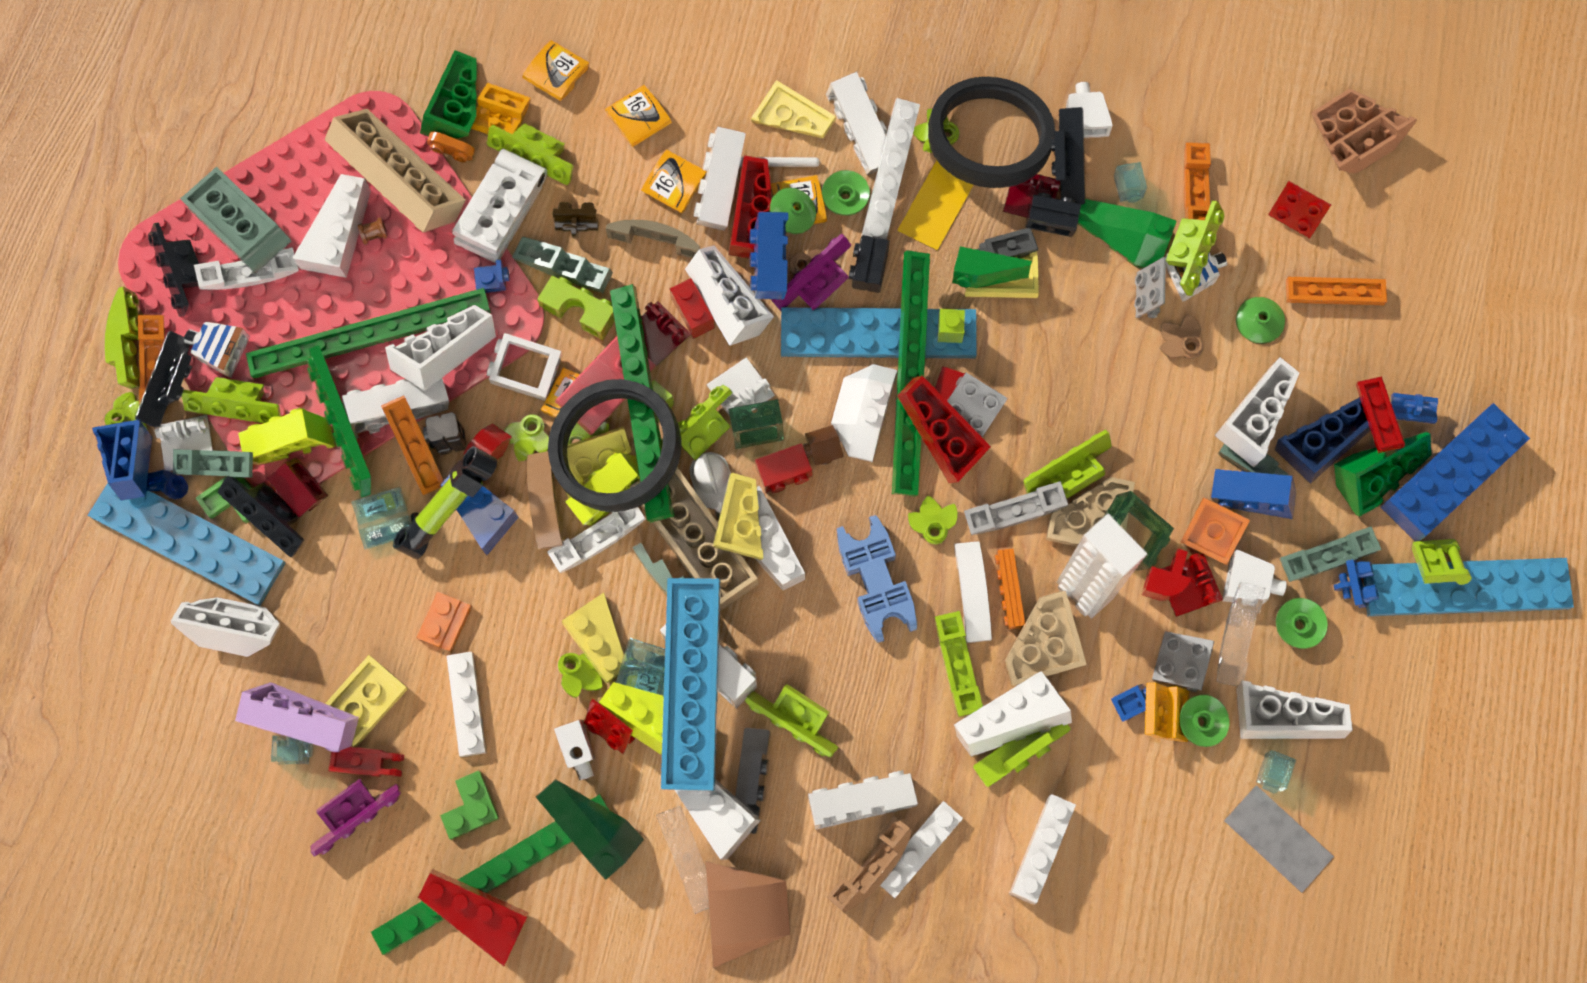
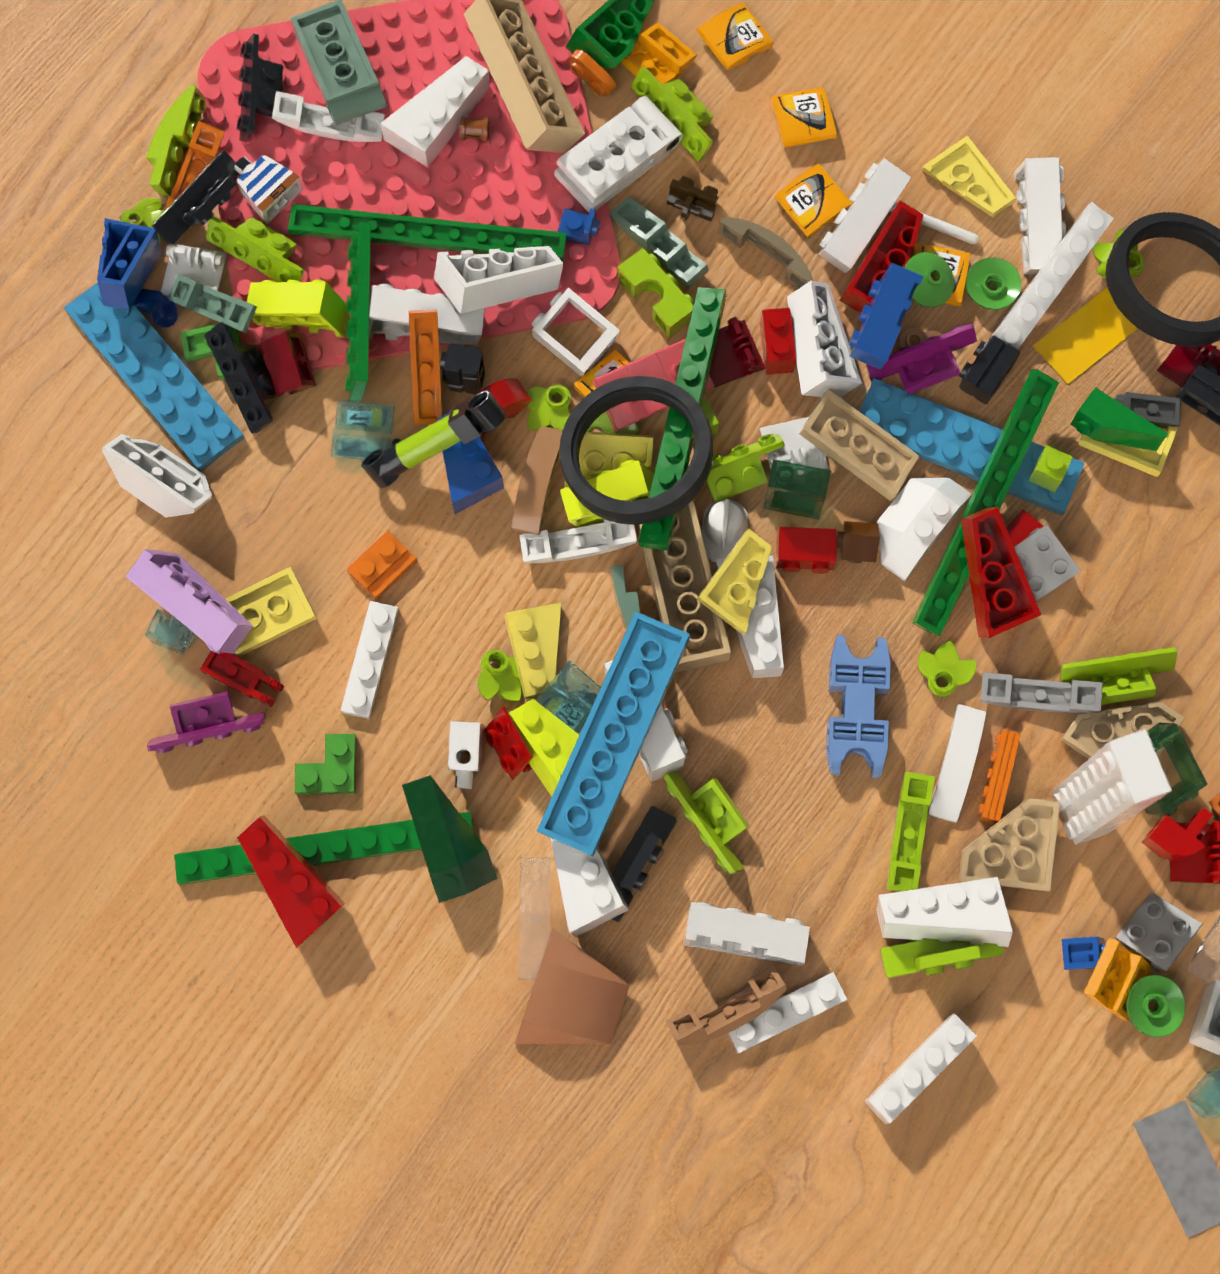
camera: 20 degrees right, 0 degrees up
(791, 367) = (859, 445): none -> tan plate

